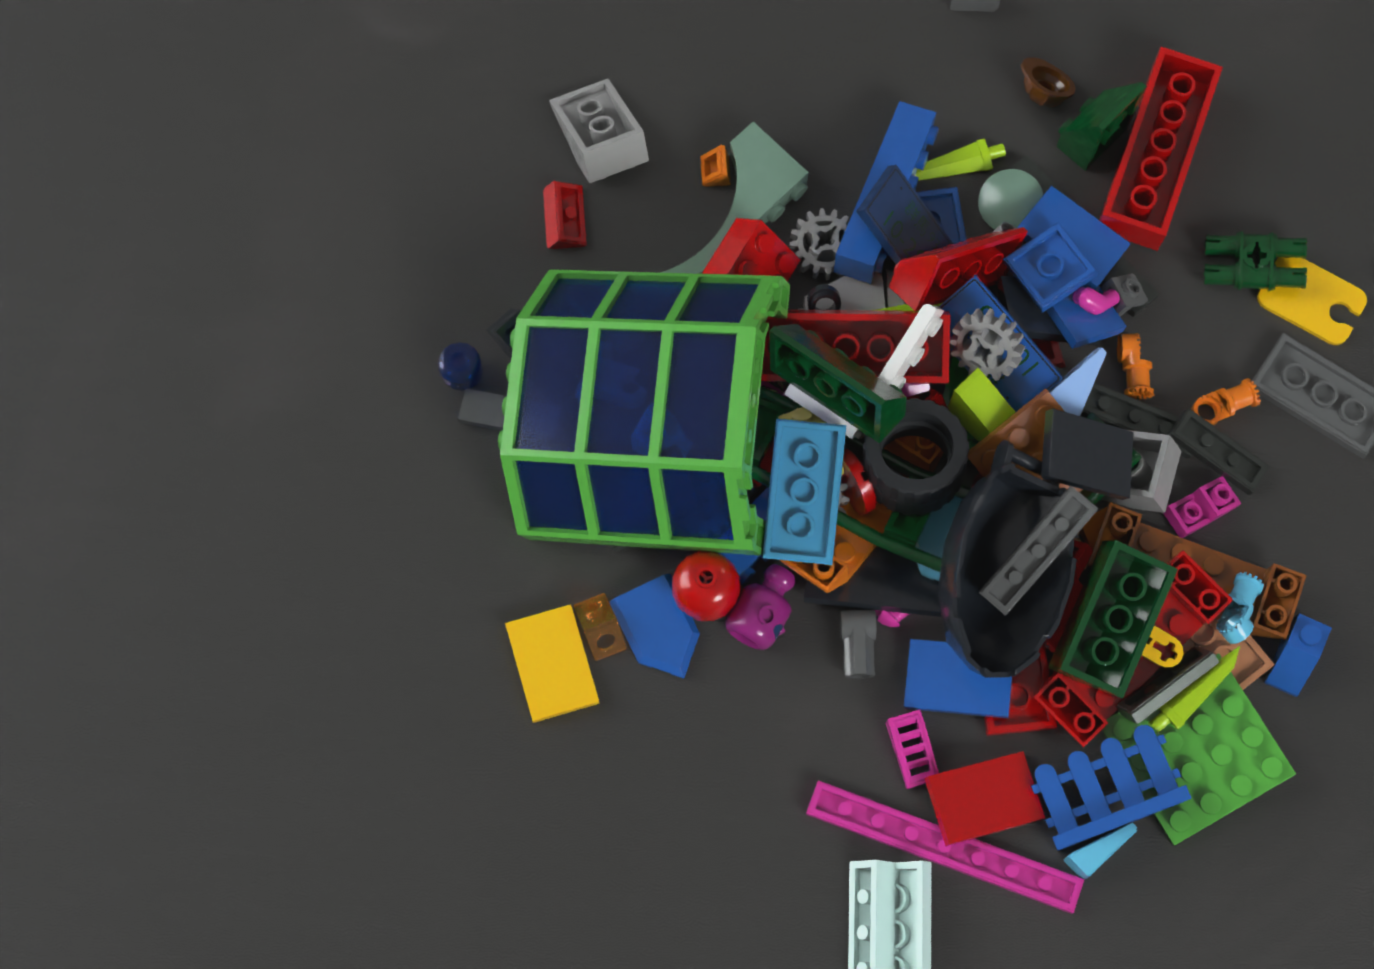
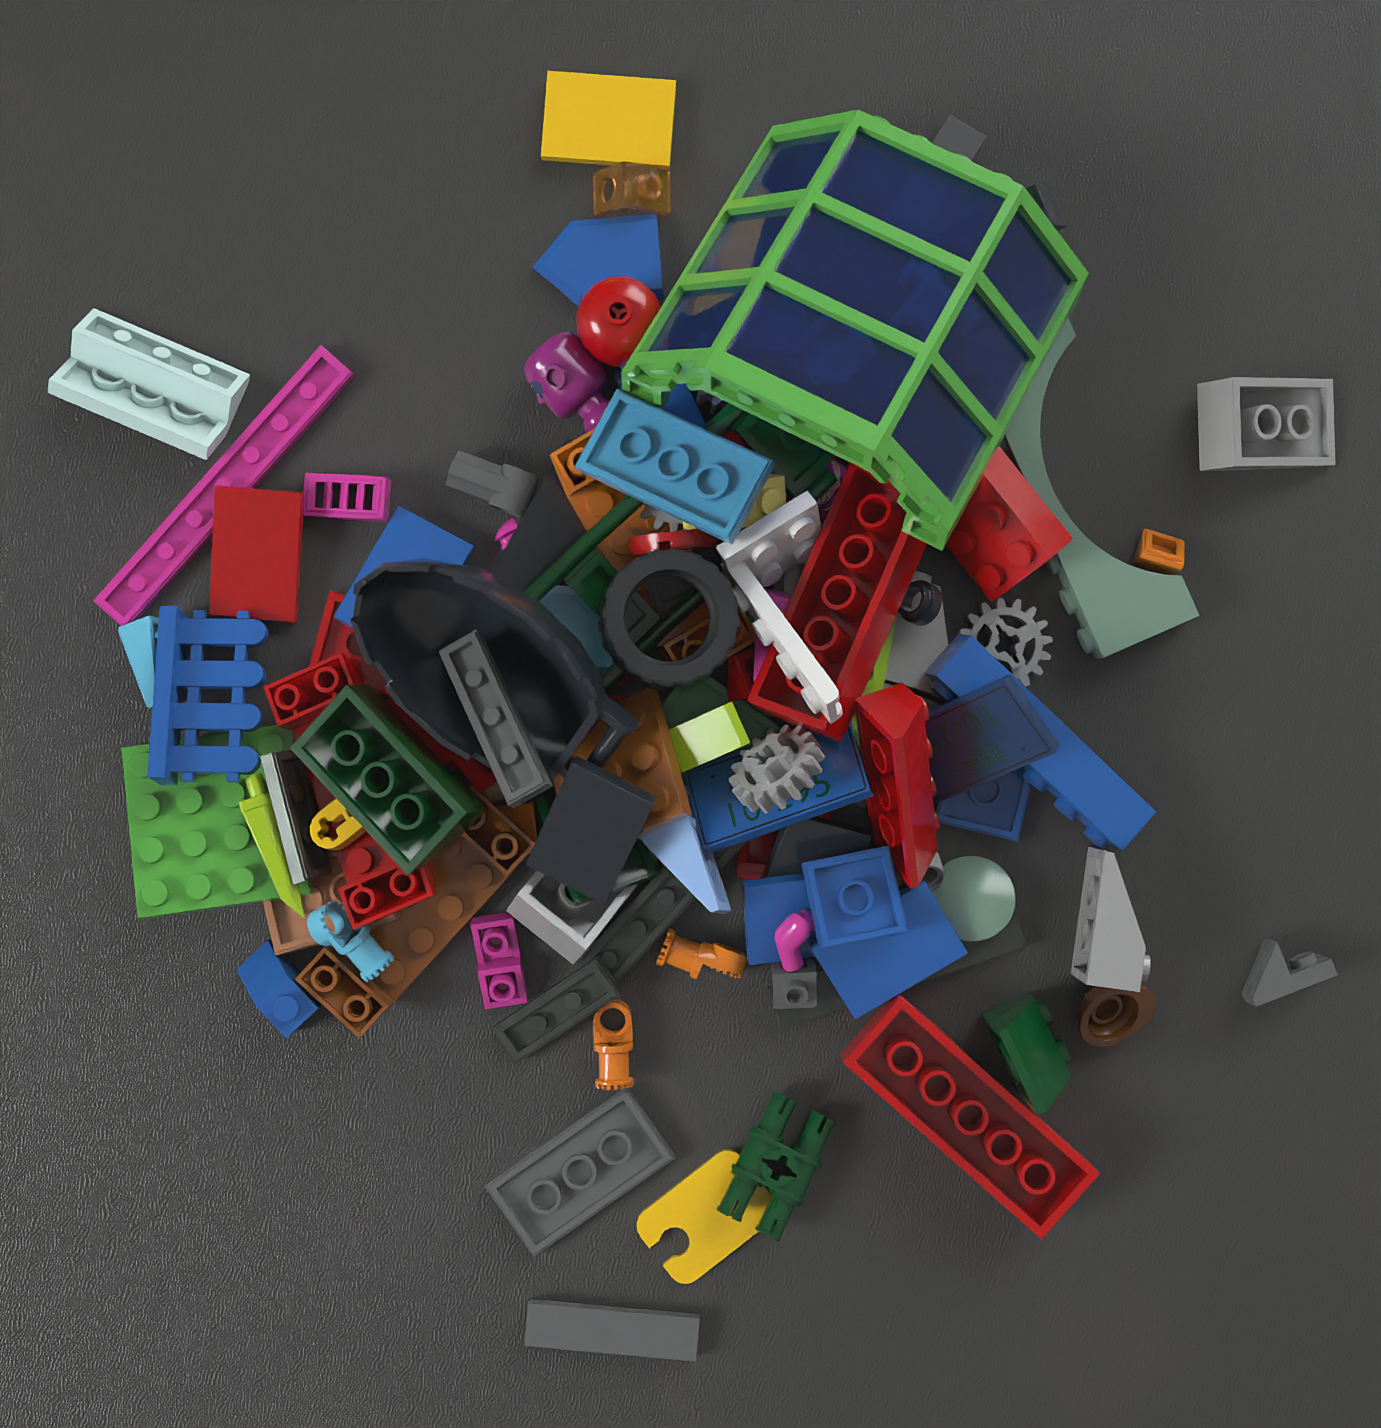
camera: 110 degrees right, 15 degrees up
(460, 366) = (1014, 136): clear blue head -> none
(564, 215) = (1168, 342): red slope -> none
(836, 381) = (791, 550): dark green slope -> none
(967, 159) = (1051, 865): lime bar -> none
(996, 103) = (1108, 938): none -> light grey slope

